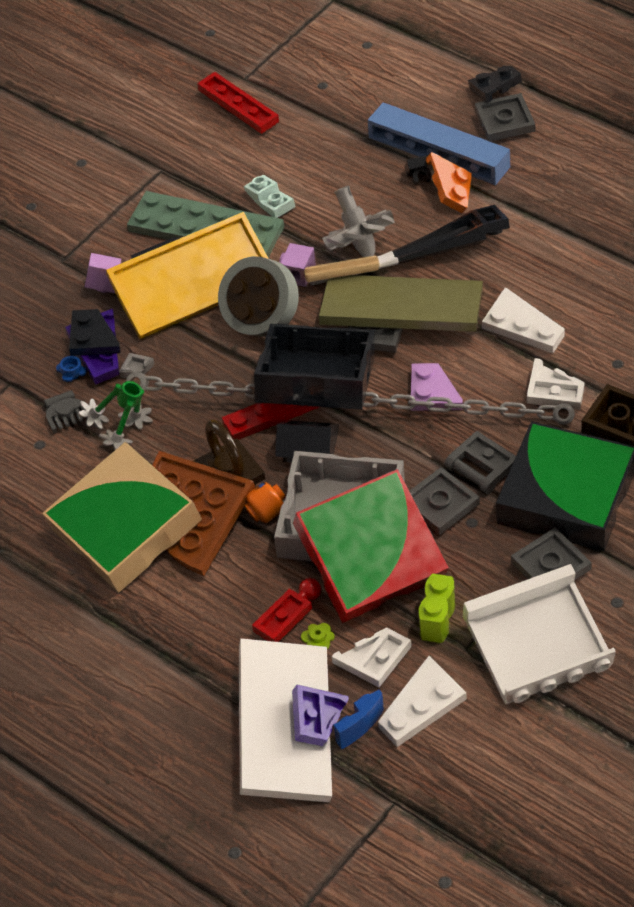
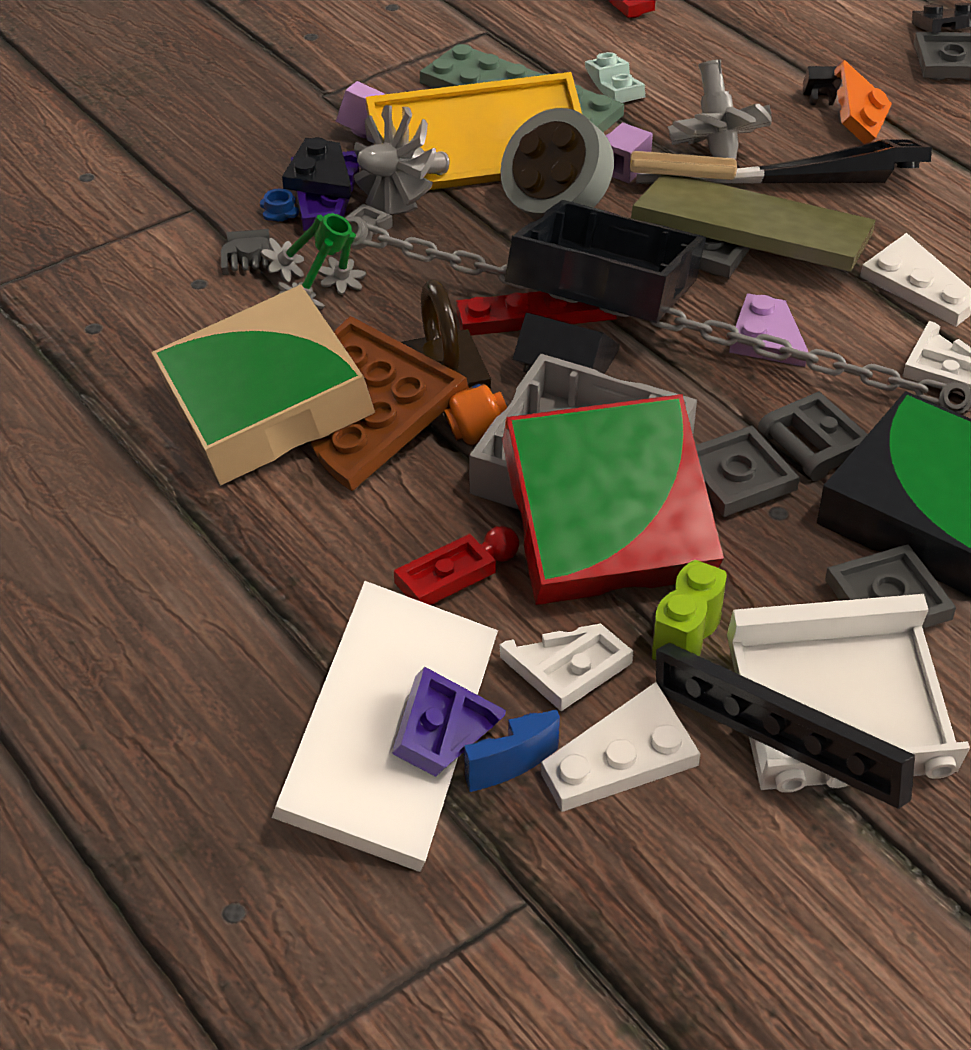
camera: 10 degrees right, 5 degrees down
(149, 324) = (394, 166): none -> light grey piece
(318, 635) = (492, 612): lime plant -> none
(422, 136) = (816, 42): medium blue brick -> none
(508, 664) = (787, 725): none -> black plate

